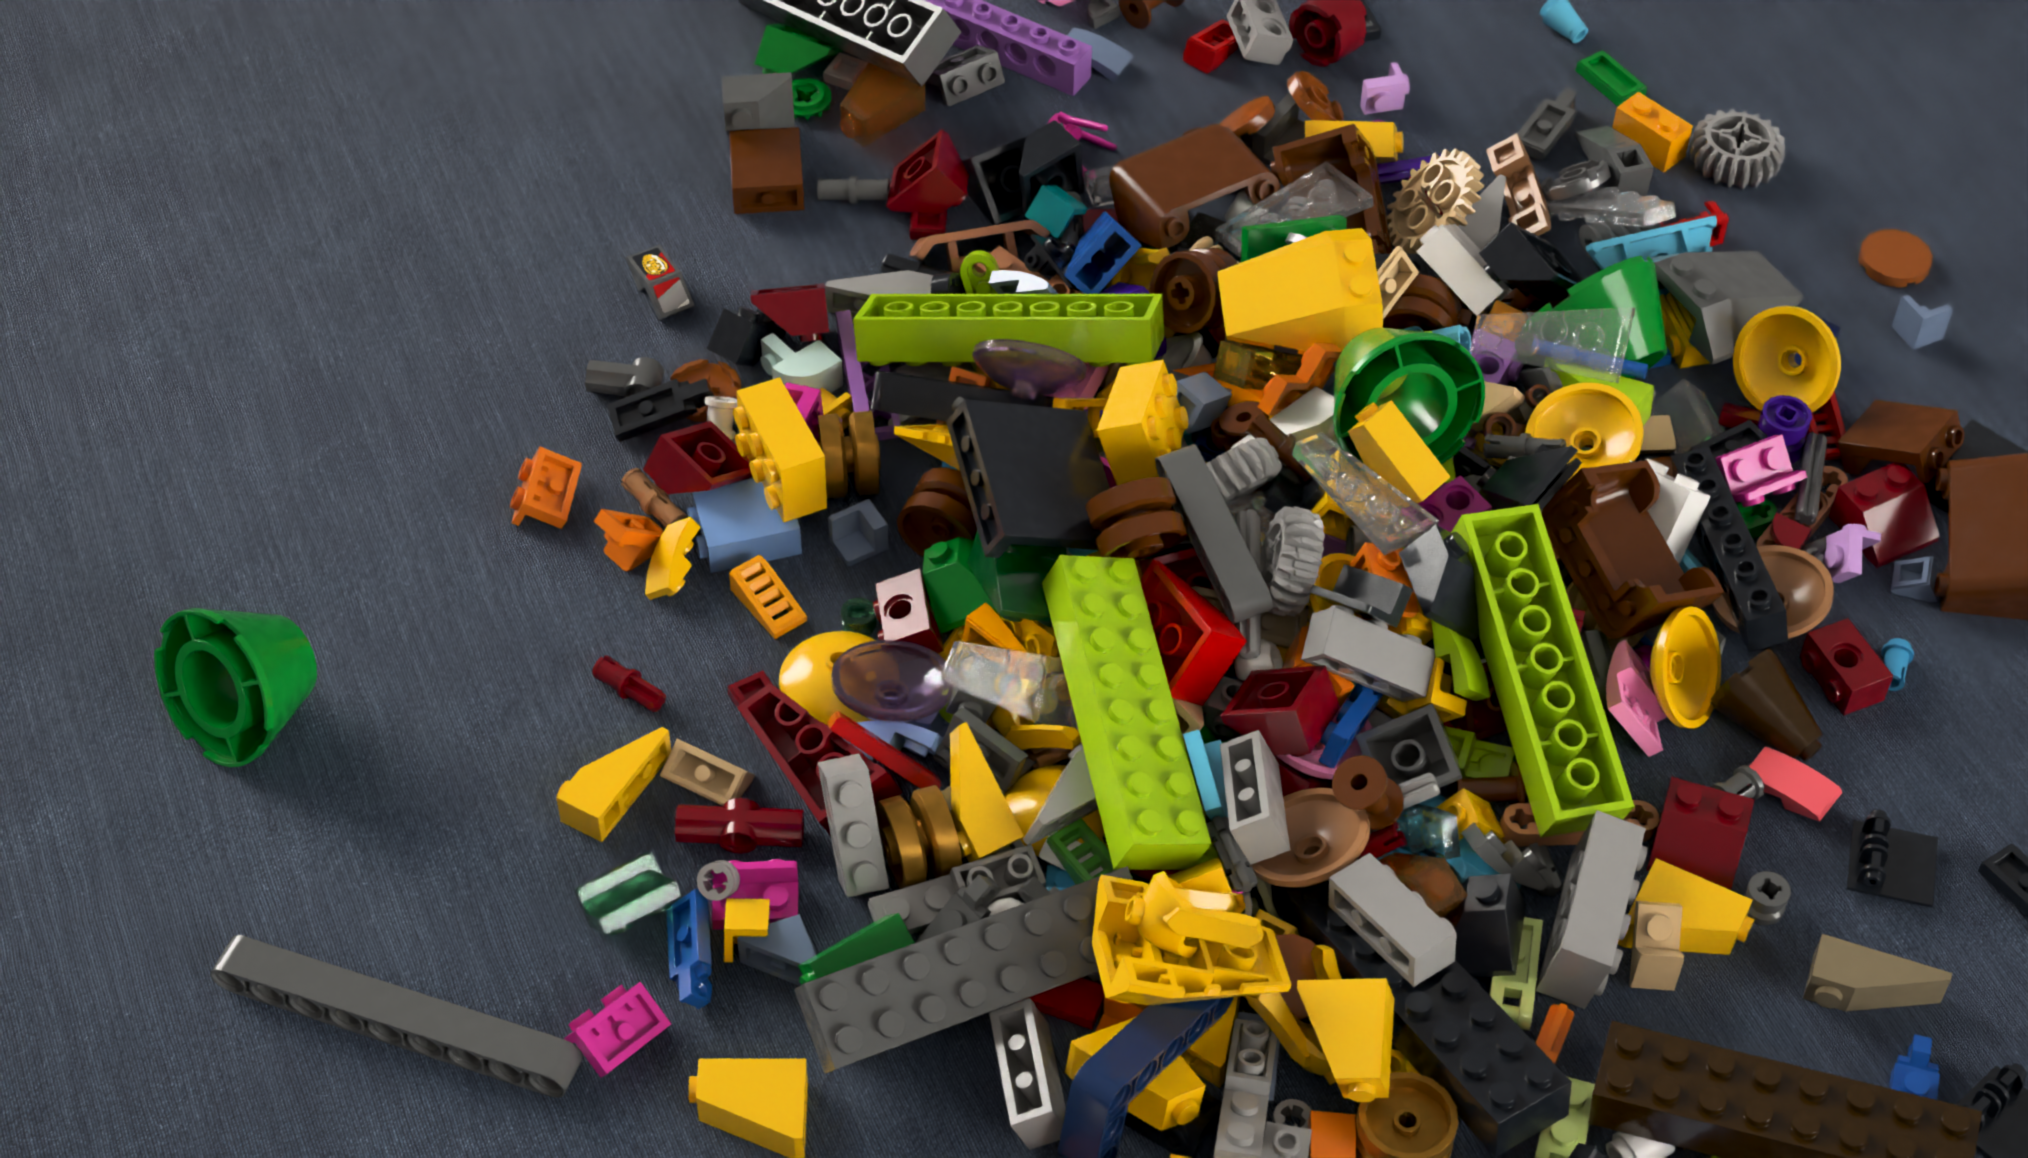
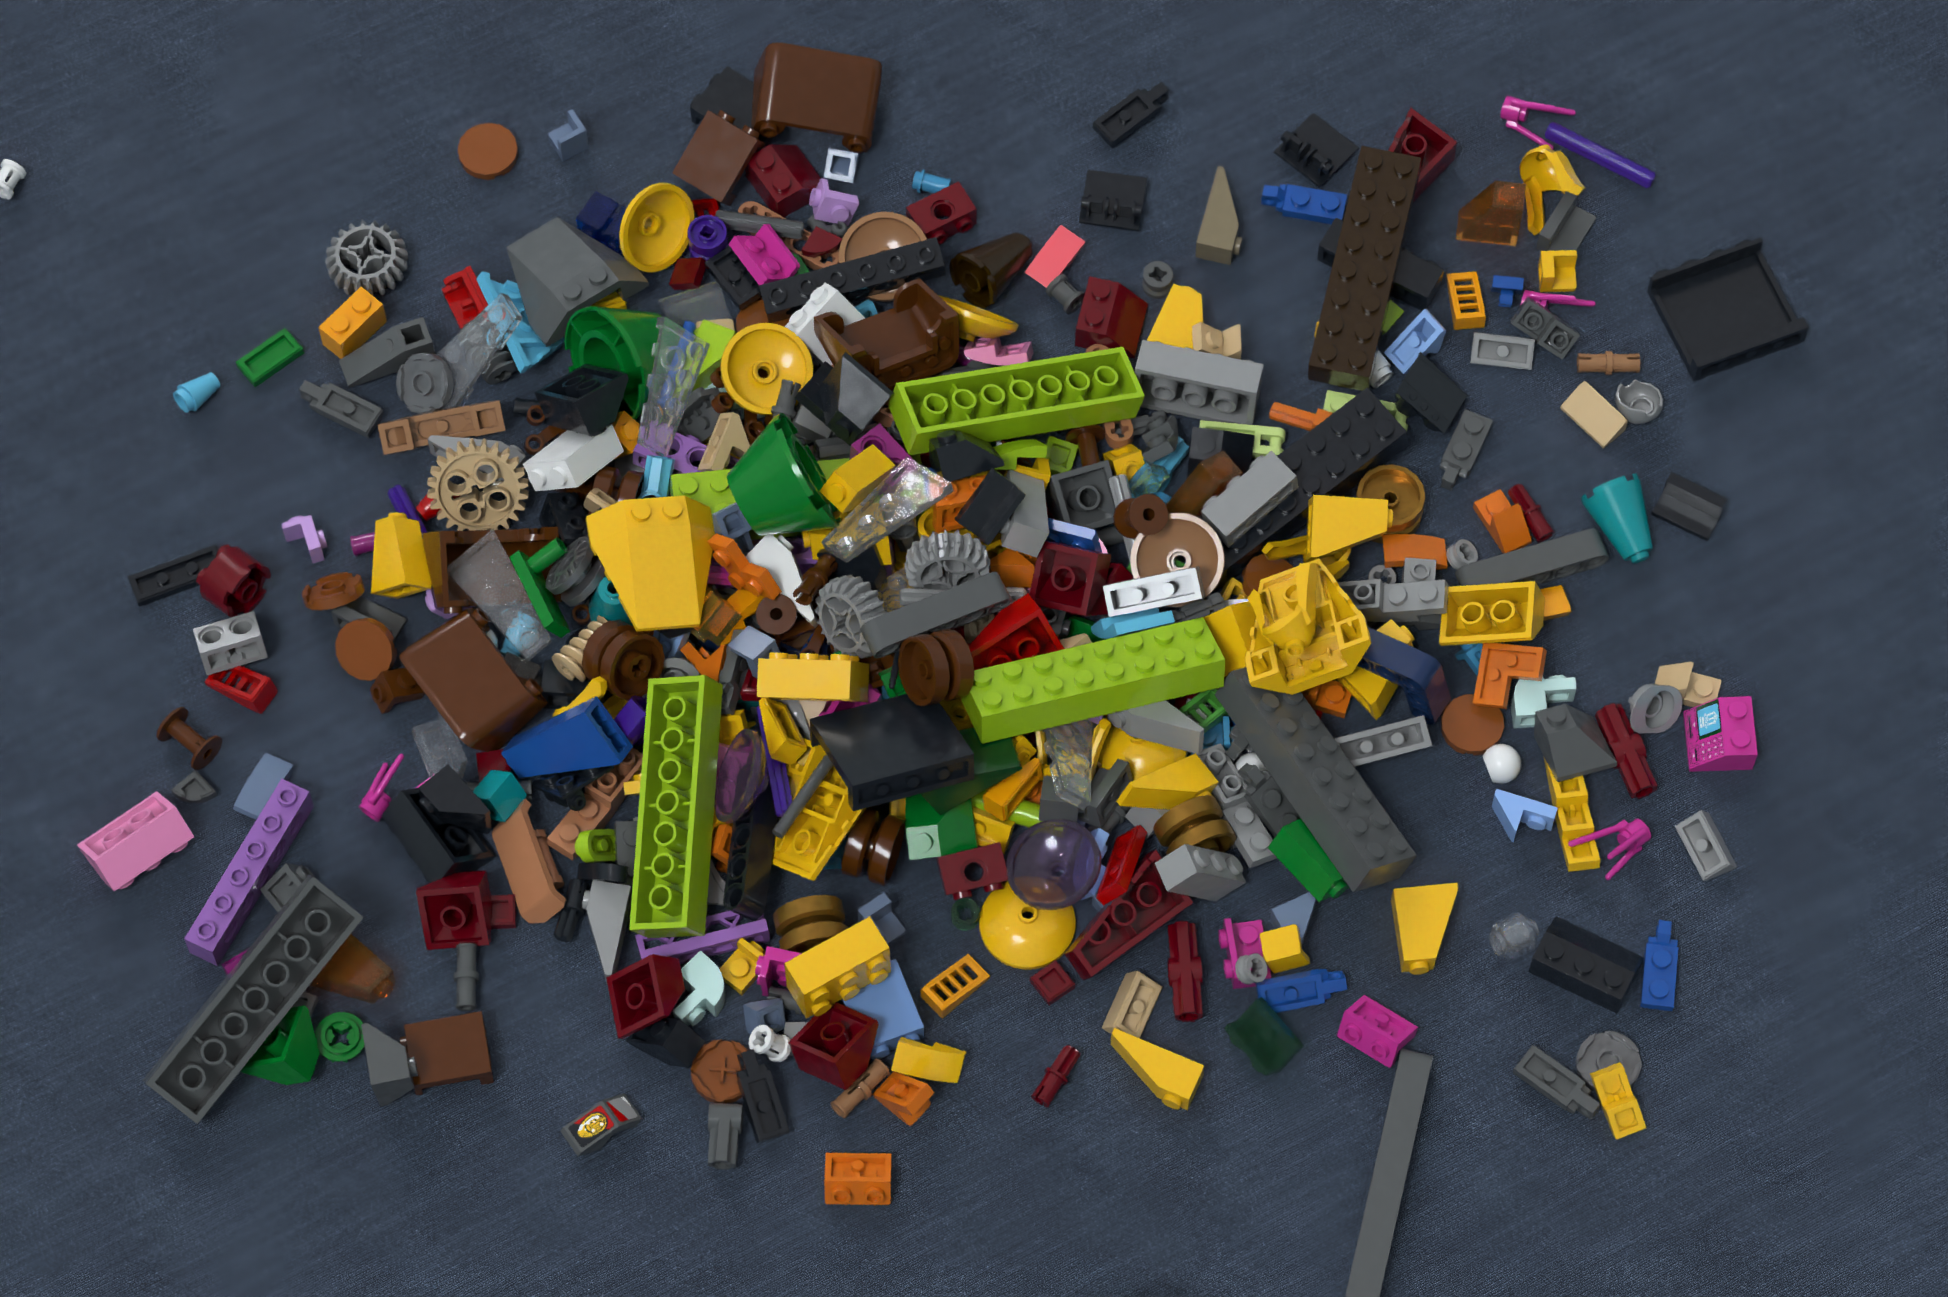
camera: 95 degrees left, 15 degrees up
(1019, 283) = (625, 793): slope -> none

